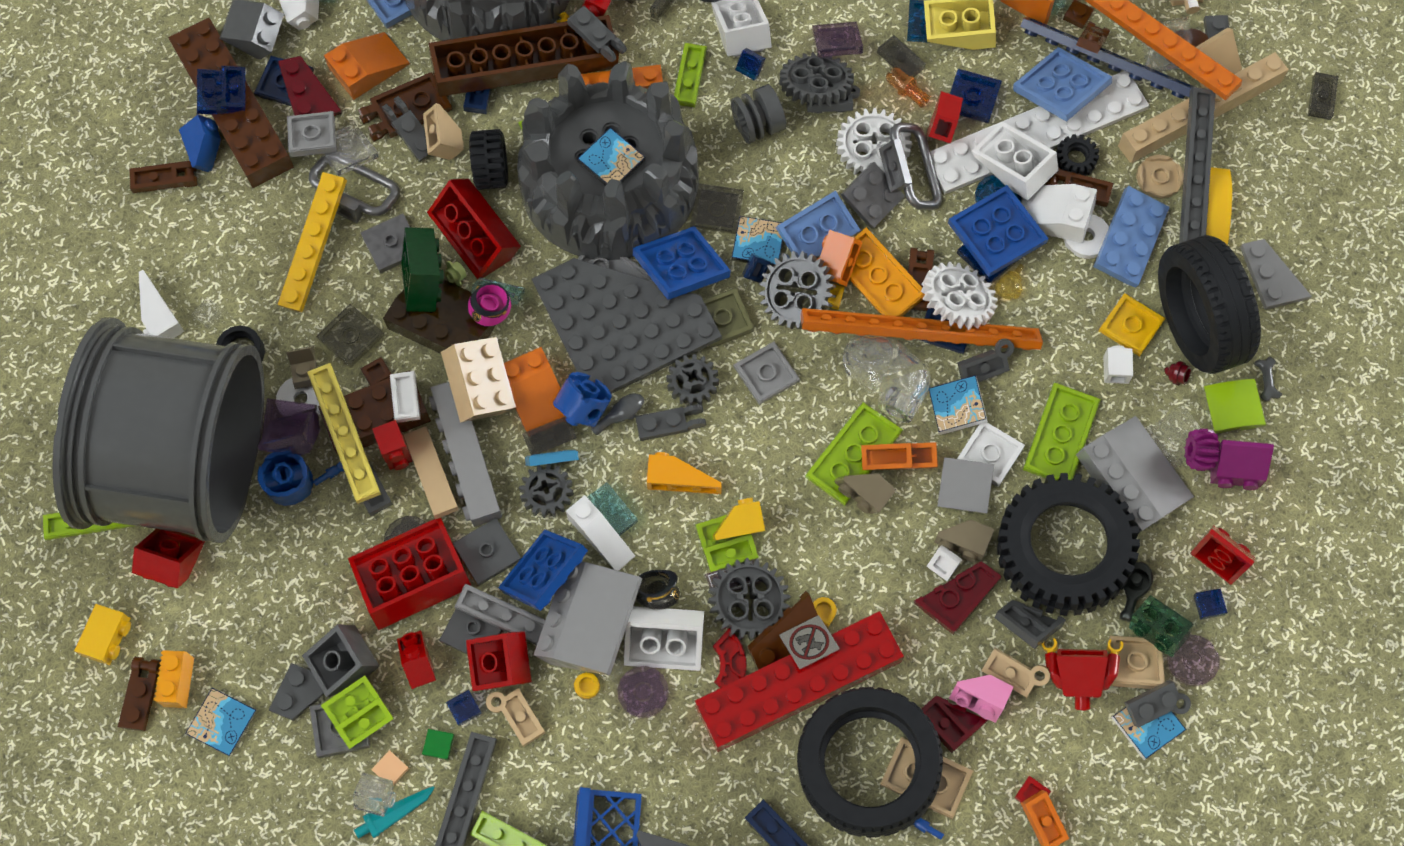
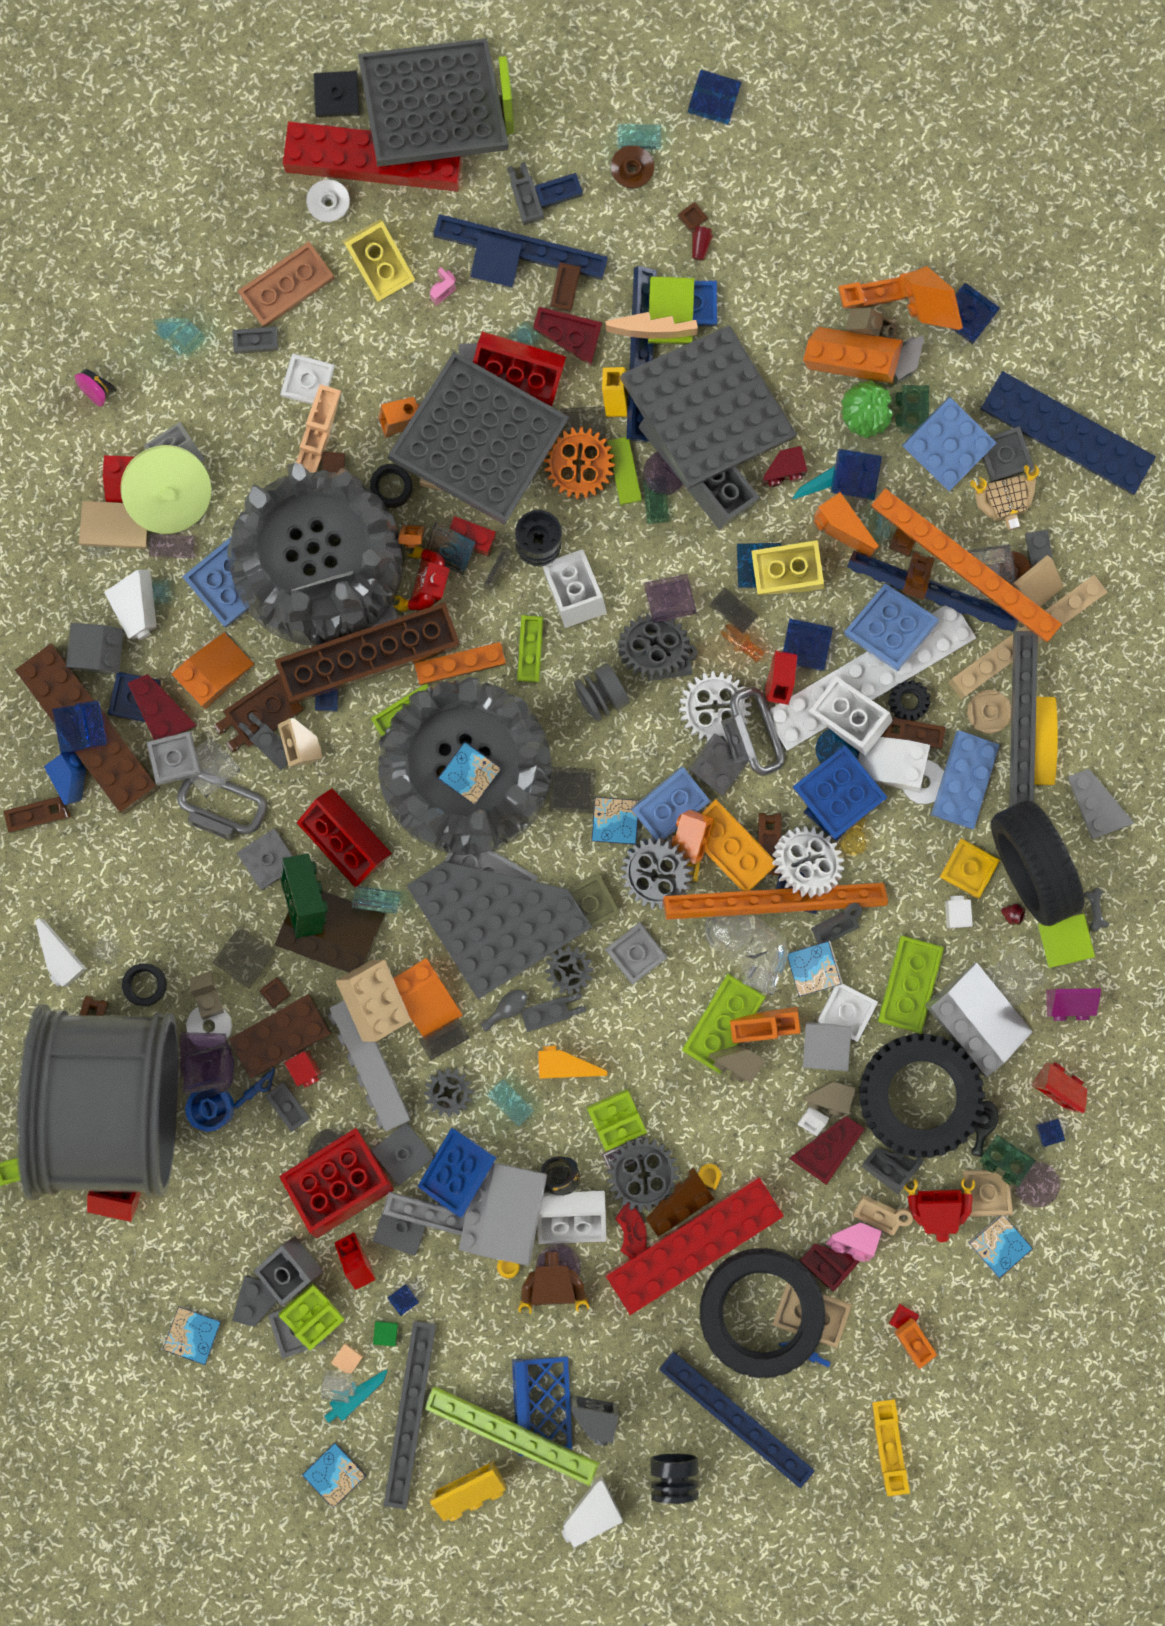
camera: 10 degrees left, 15 degrees up
(103, 634) = (73, 1270): yellow brick -> none
(139, 694) = (115, 1318): reddish brown plate -> none
(174, 679) = (144, 1304): light orange brick -> none
(312, 242) = (194, 871): yellow plate -> none
(344, 433) = (257, 1065): light yellow tile -> none
(405, 396) = (308, 1024): white tile -> none
(431, 472) = (341, 1086): tan tile -> none
(455, 272) = (333, 885): yellowish green plate -> none
(488, 159) = (349, 770): black tyre -> none
(489, 304) = (371, 920): dark pink piece -> none
(498, 661) = (428, 1257): red slope -> none
(518, 715) = (452, 1301): tan hinge -> none
(552, 457) = (449, 1062): dark azure tile -> none
(582, 399) = (471, 1007): blue brick -> none
(595, 33) = (434, 626): dark grey hinge -> none
(599, 533) = (502, 1128): white slope -> none
(633, 707) = (552, 1285): none -> reddish brown torso
(681, 262) = (545, 857): blue plate -> none
(741, 520) = (627, 1105): yellow slope -> none
(750, 64) = (587, 633): clear blue plate -> none
(755, 268) = (615, 850): dark blue slope -> none
(809, 642) = (700, 1213): clear smoke sticker -> none
(1156, 703) = (1006, 1231): dark grey hinge -> none
(1202, 449) = (1037, 993): magenta gear -> none
(1323, 96) = (1141, 610): clear smoke plate -> none

